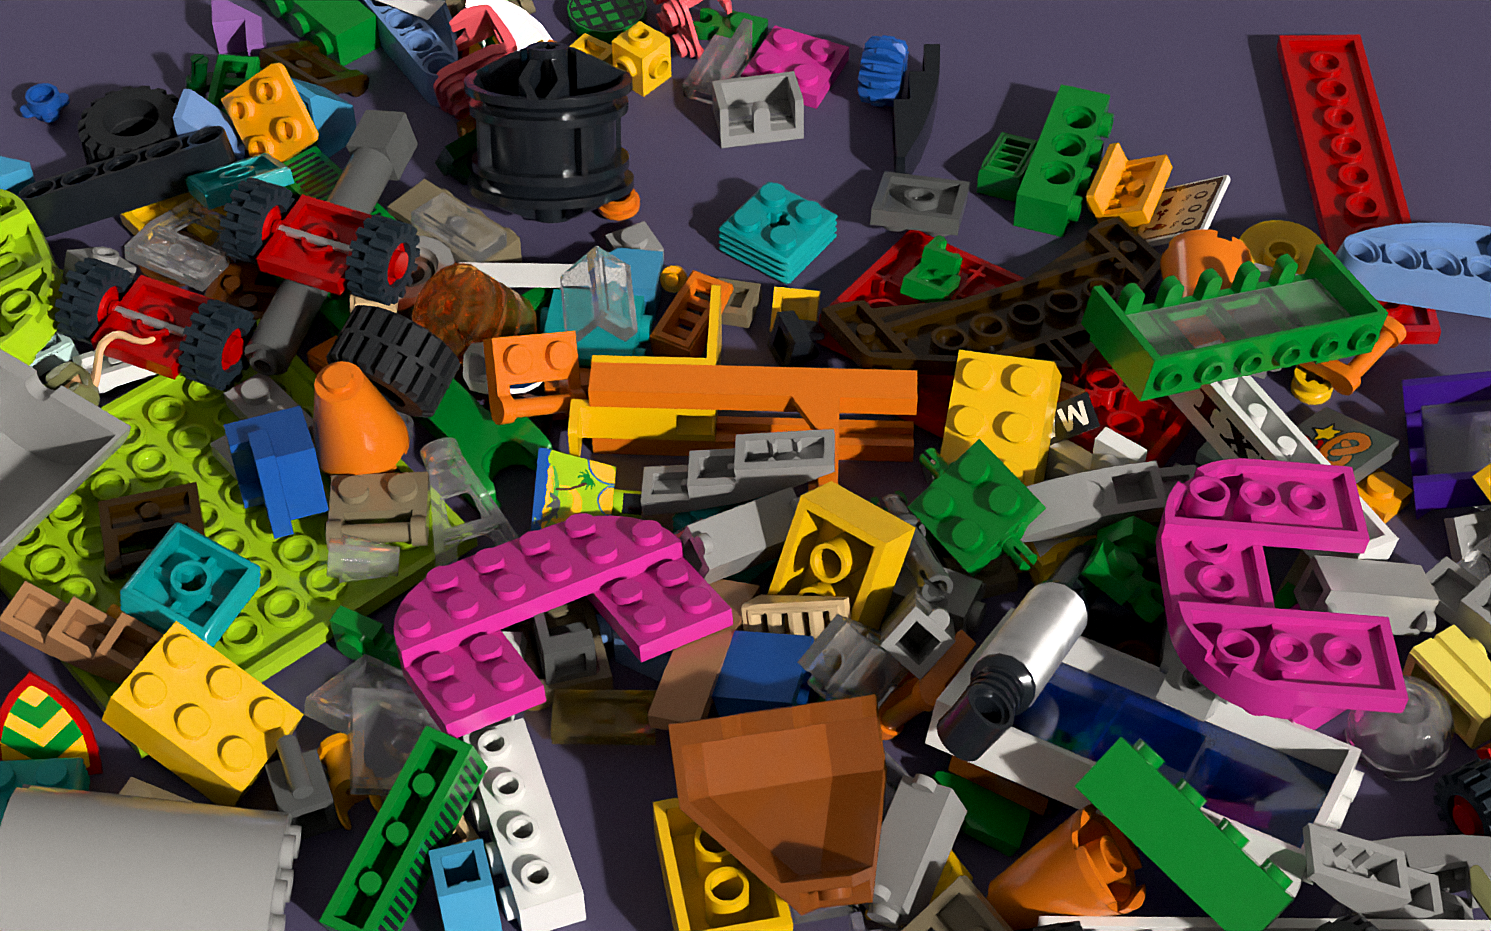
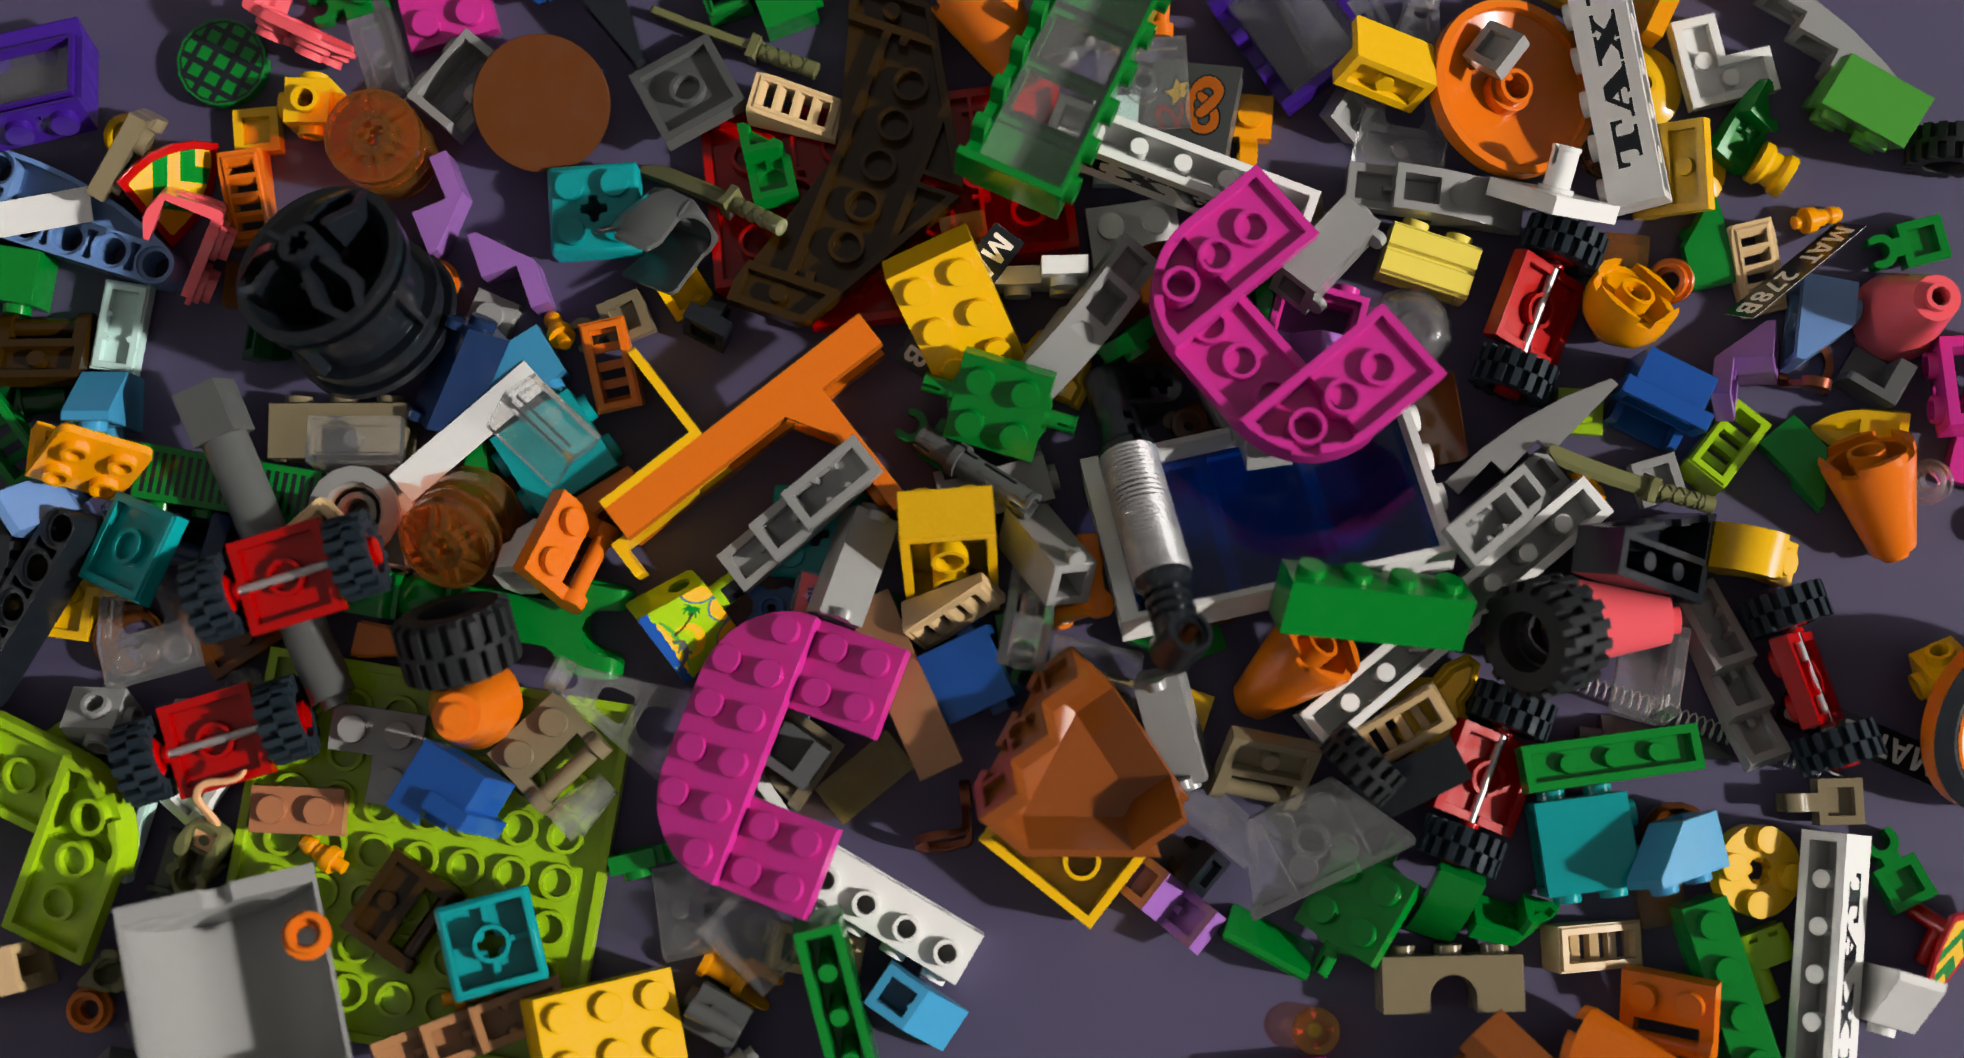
camera: 40 degrees left, 35 degrees up
(71, 450) = (302, 921): none -> orange plate
(142, 462) = (328, 857): none -> light orange piece
(159, 421) = (299, 810): none -> nougat plate
(383, 91) = (122, 327): none -> light aqua plate
(600, 227) = (459, 371): none -> dark blue brick
(624, 828) = (922, 843): none -> copper piece
(665, 167) = (443, 220): none -> medium lavender slope
(667, 98) = (400, 160): none -> clear orange wheel
(680, 221) = (500, 264): none -> medium lavender slope
(804, 139) = (540, 102): none -> reddish brown tile
(833, 238) = (669, 240): none -> dark grey piece
(882, 269) = (728, 201): none -> olive sword
(982, 244) = (784, 90): none -> tan slope
(996, 214) = (754, 49): none -> olive sword
(1121, 578) = (1145, 384): green plate -> none
(1312, 400) = (1160, 87): none -> clear plate
(1381, 802) = (1443, 422): none -> reddish brown slope

